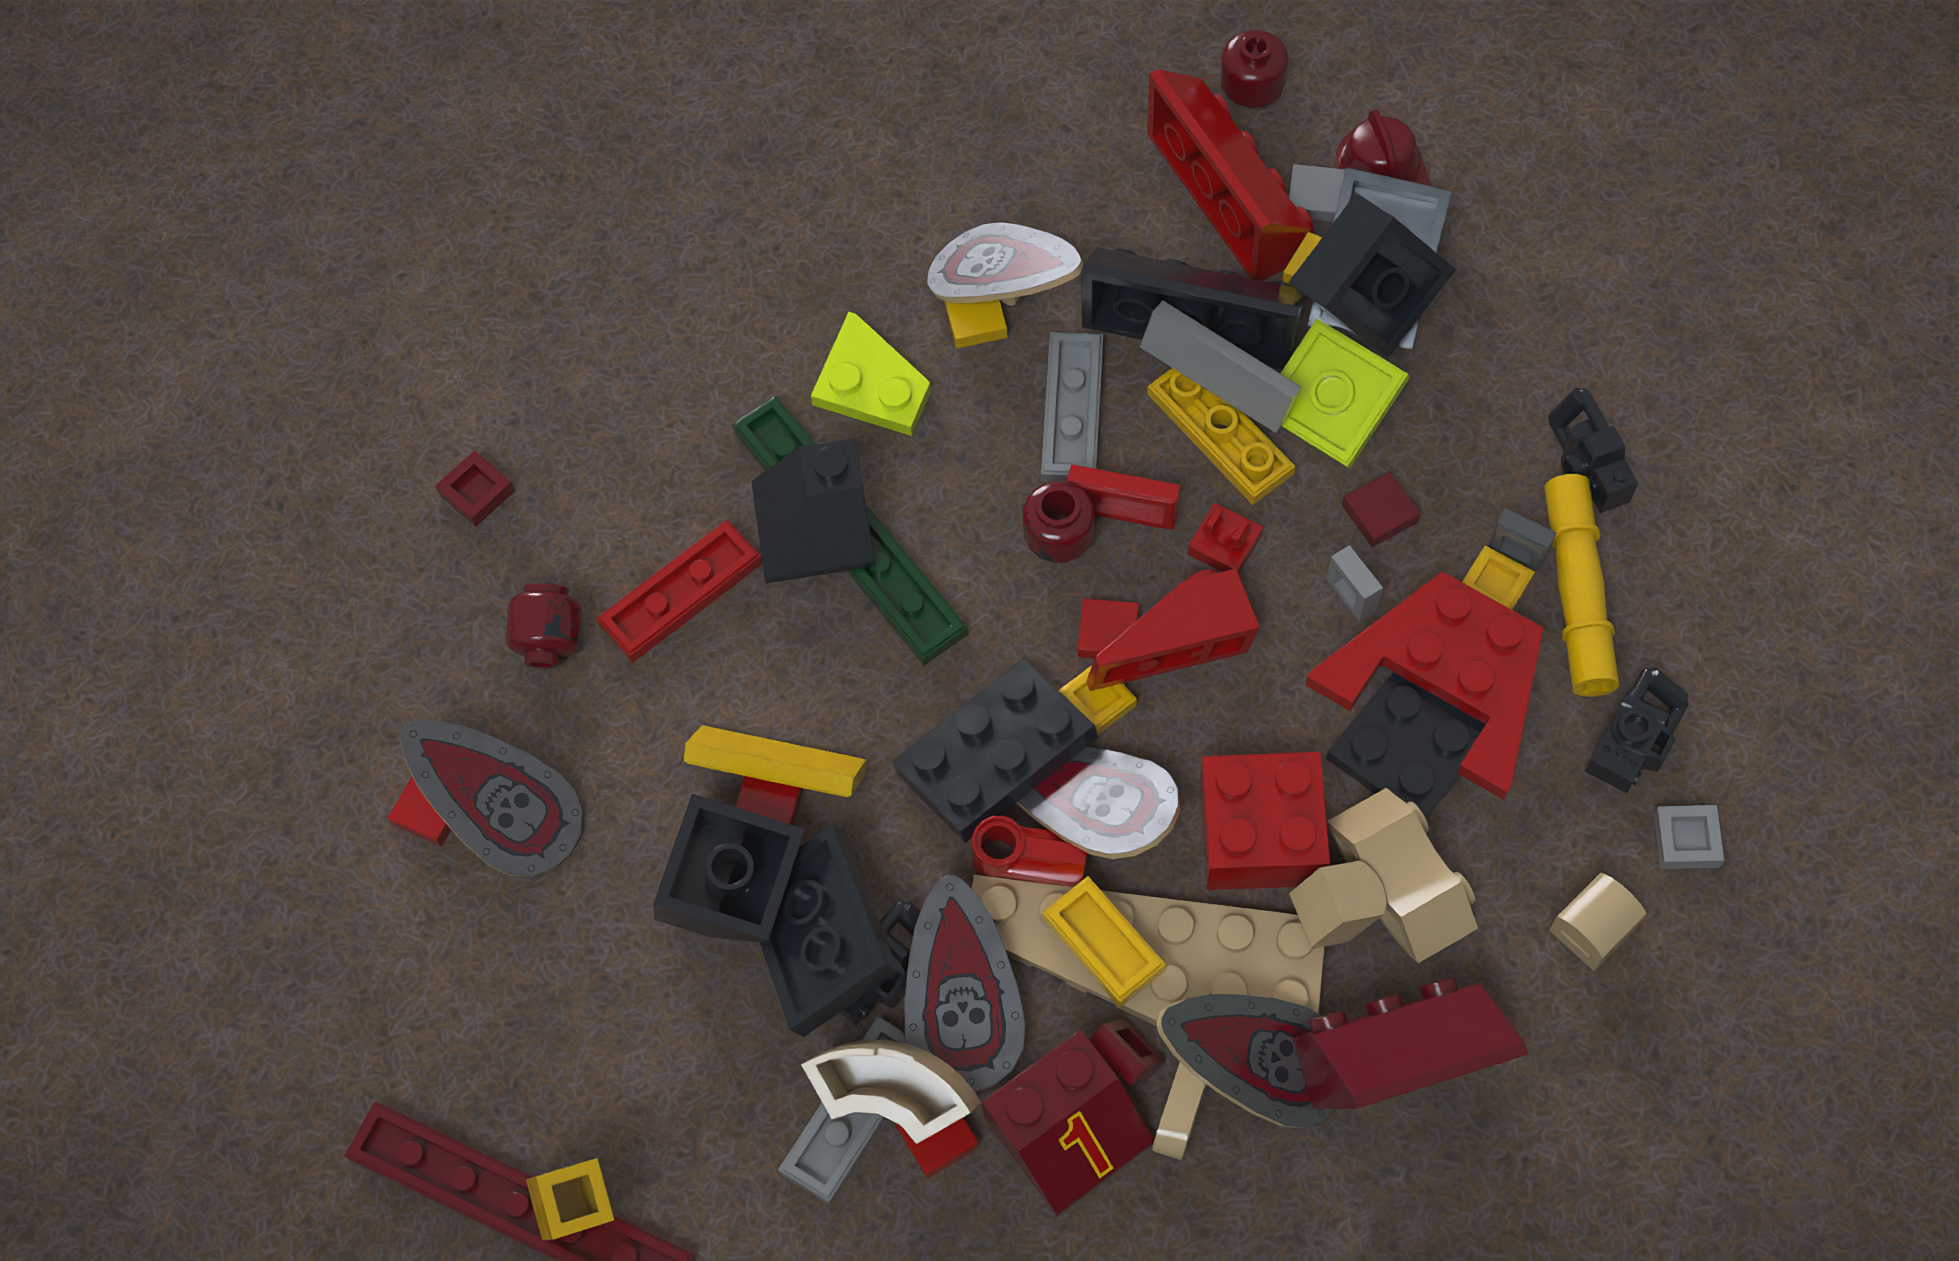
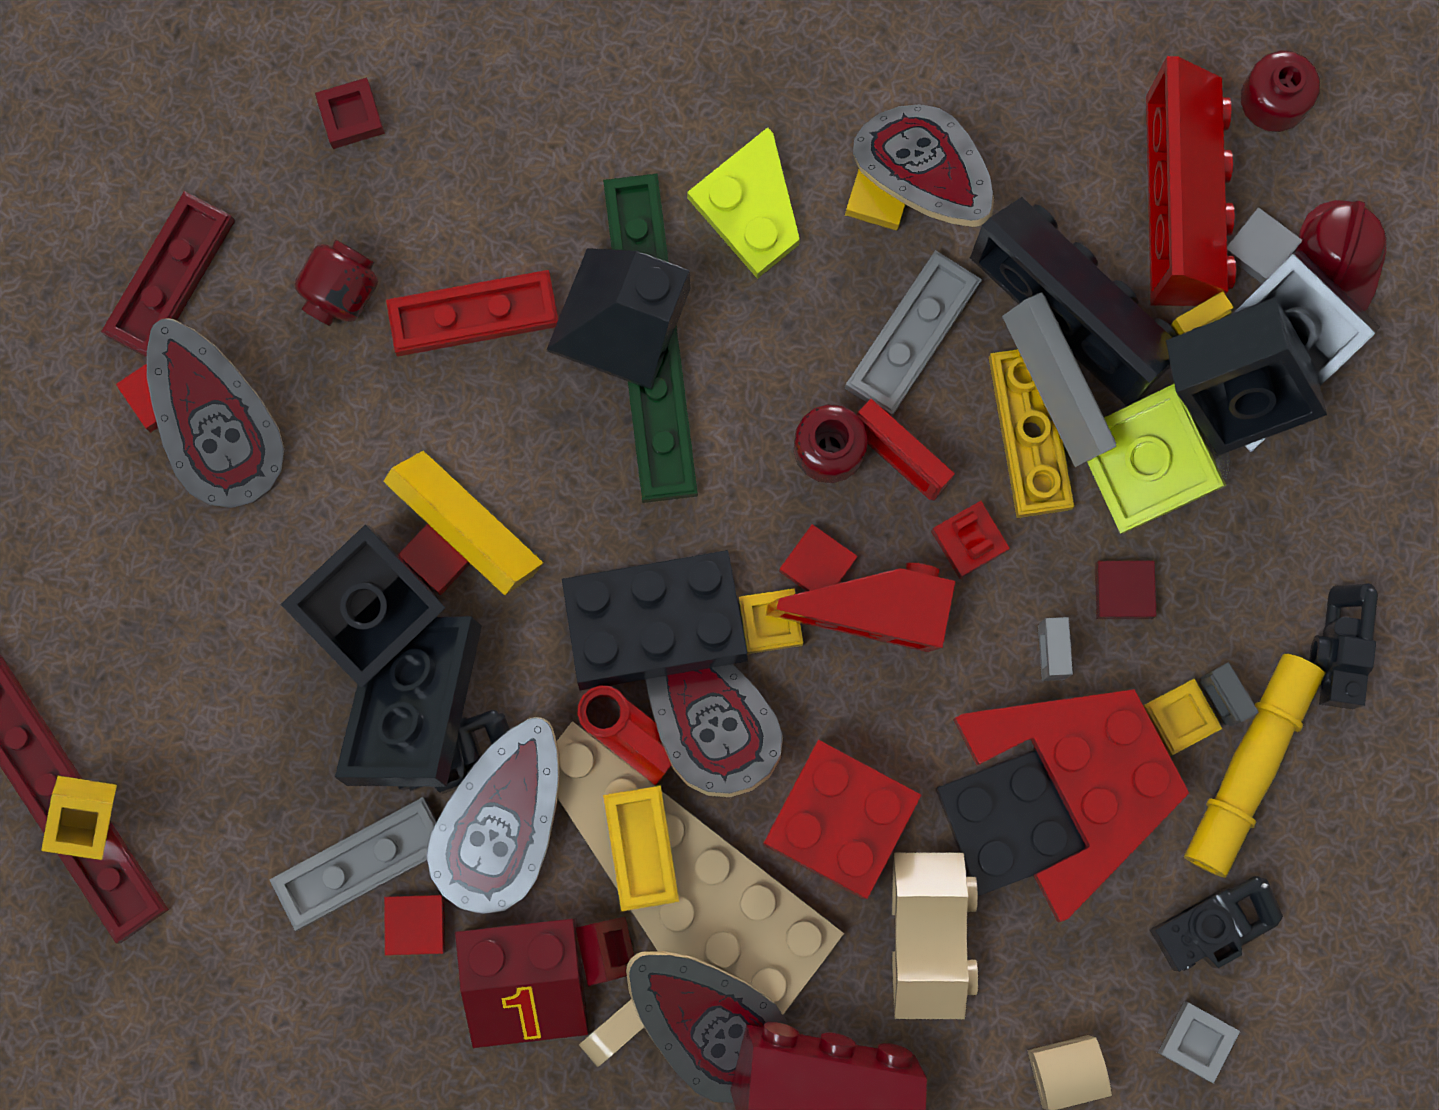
camera: 25 degrees right, 15 degrees up
(383, 704) = (169, 271): none -> dark red tile
(893, 1082) = (391, 873): tan brick -> none
(1339, 902) = (857, 935): tan piece -> none

